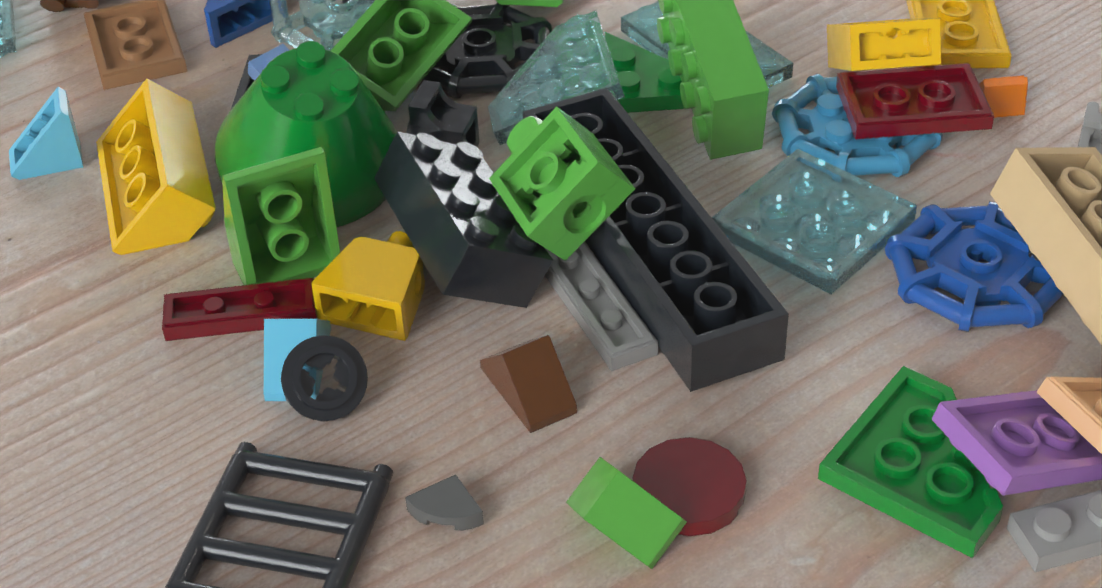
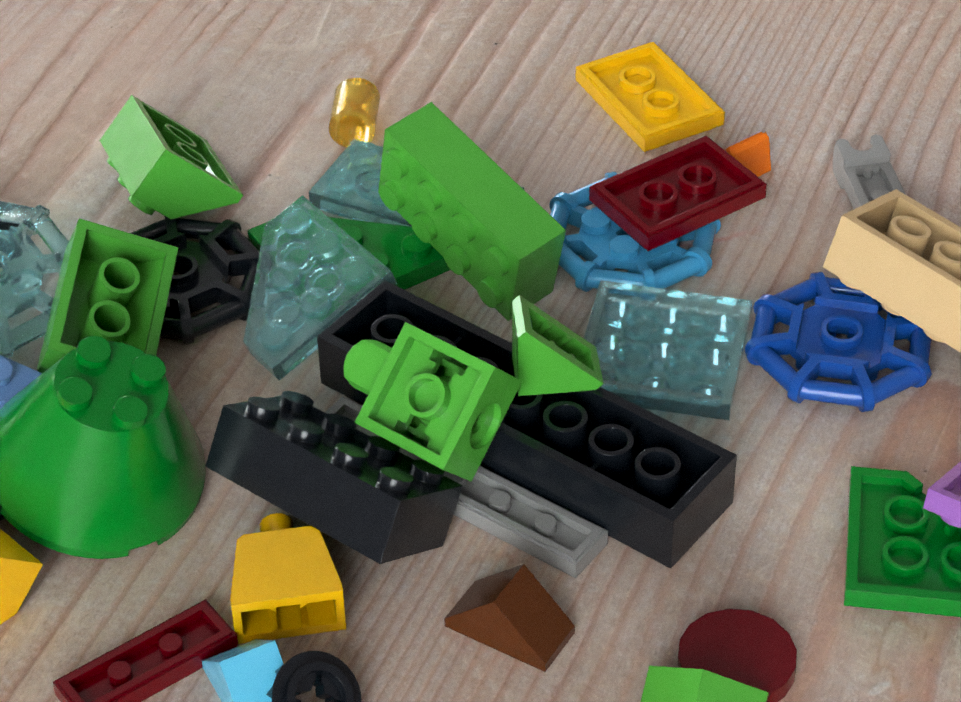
camera: 30 degrees left, 0 degrees up
(281, 219) = (153, 555): bright green slope -> none
(442, 117) = (216, 380): black brick -> none
(679, 177) = (549, 354): none -> bright green slope
(884, 44) = (614, 141): yellow window -> none

